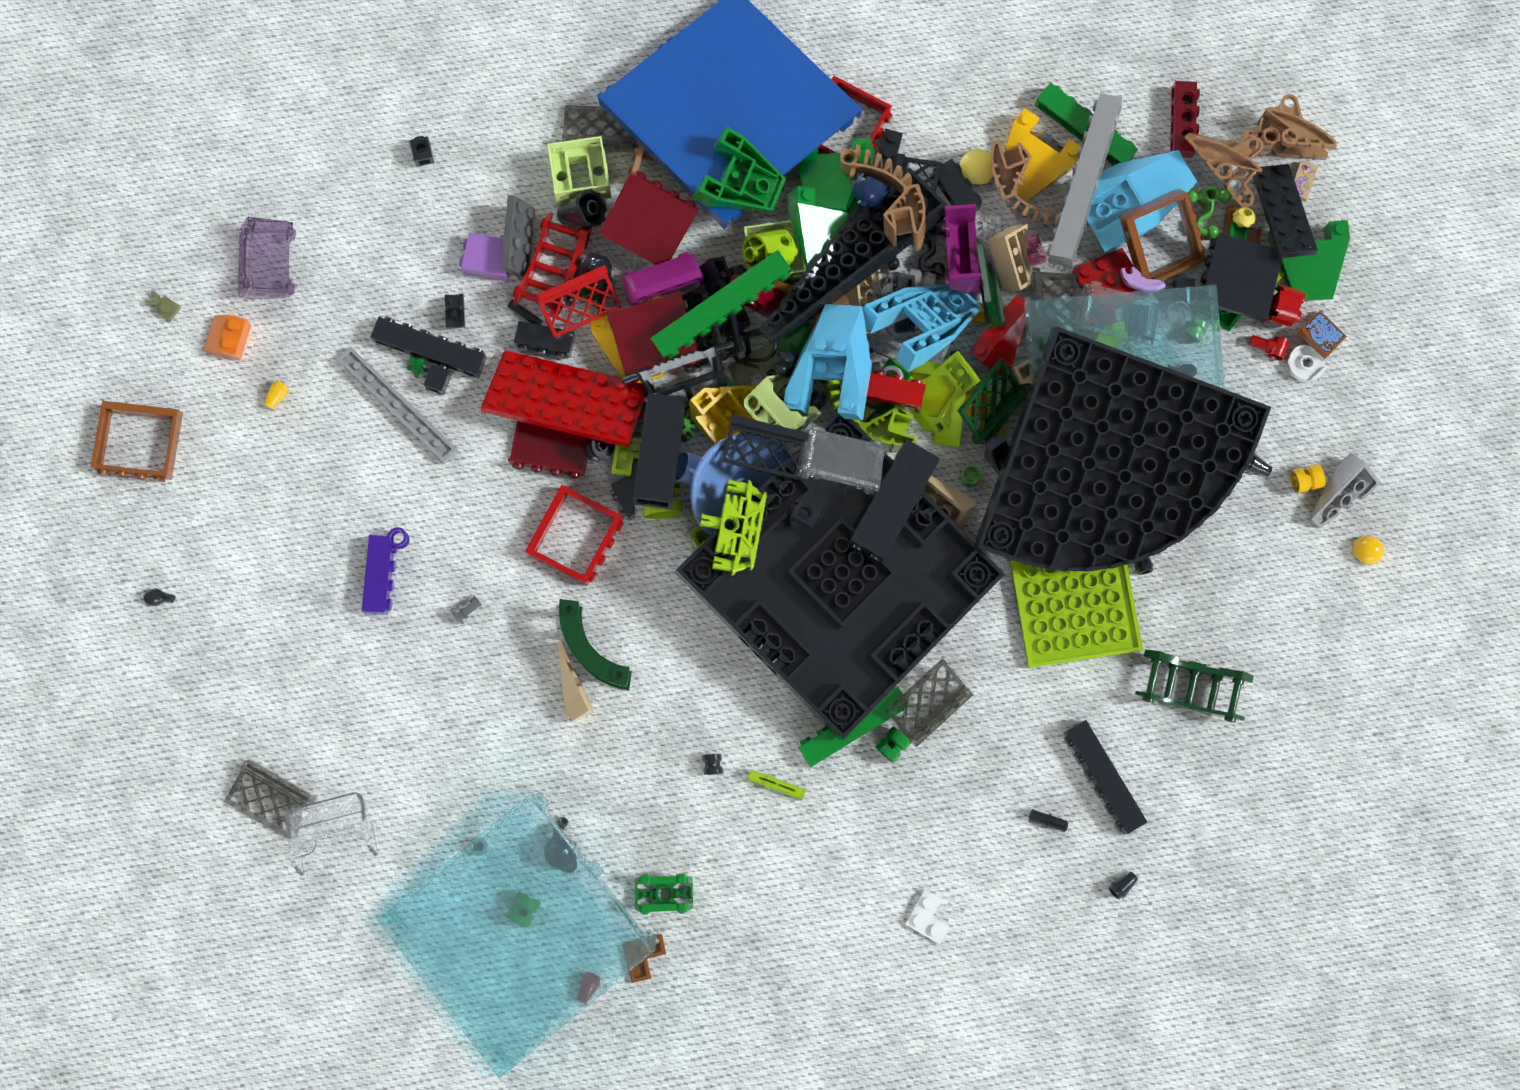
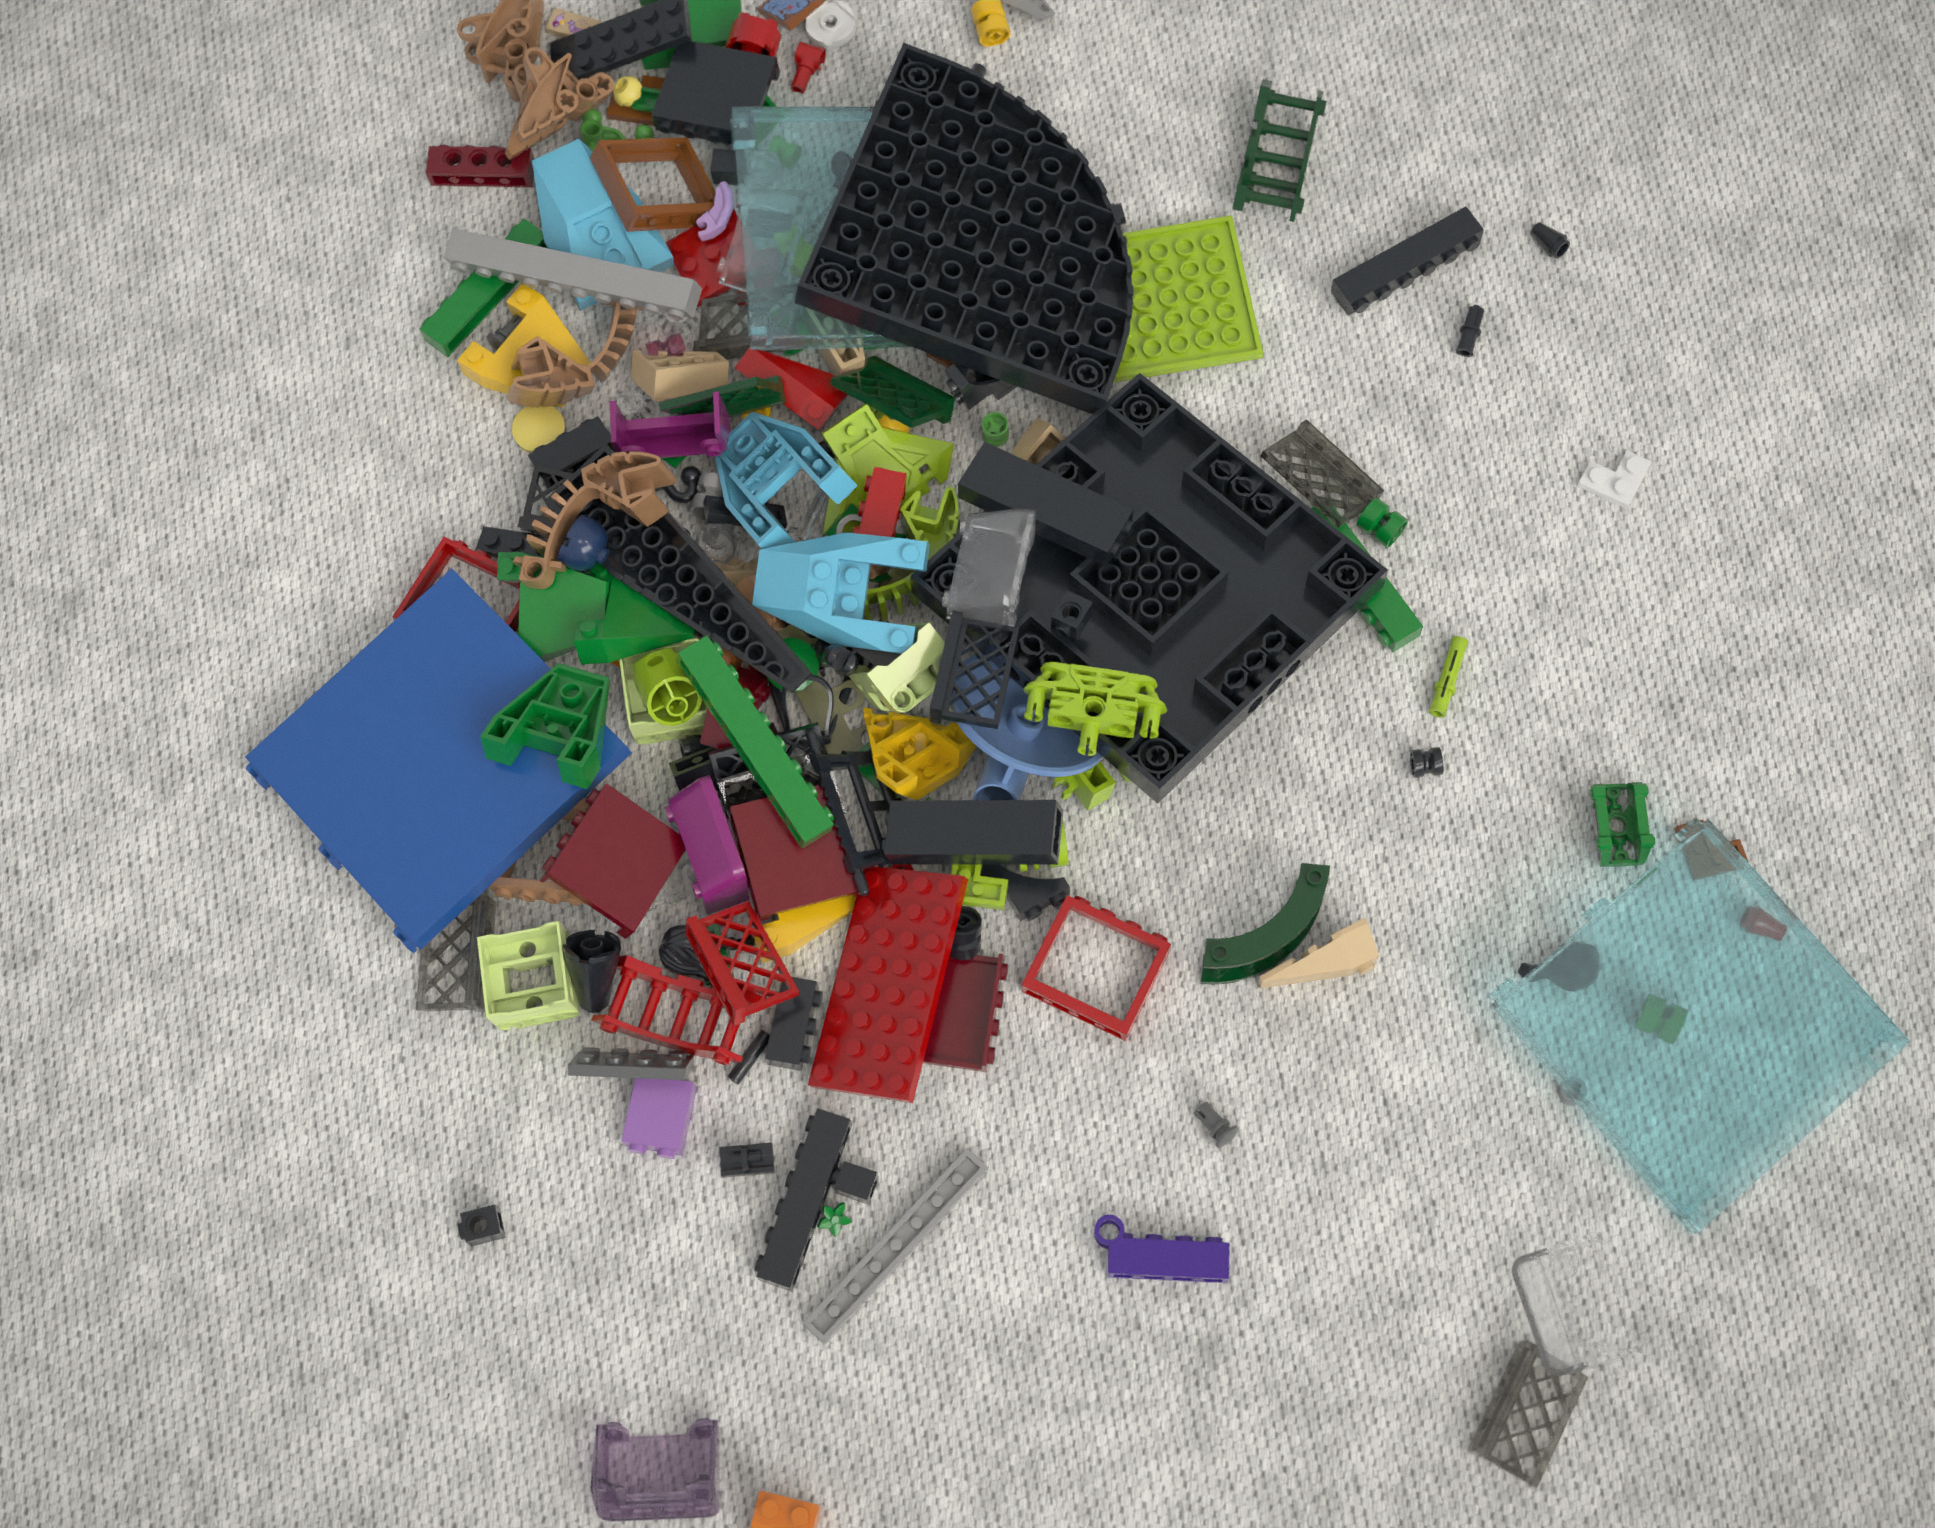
camera: 80 degrees left, 10 degrees down
(276, 393) = (880, 1441): yellow cone -> none

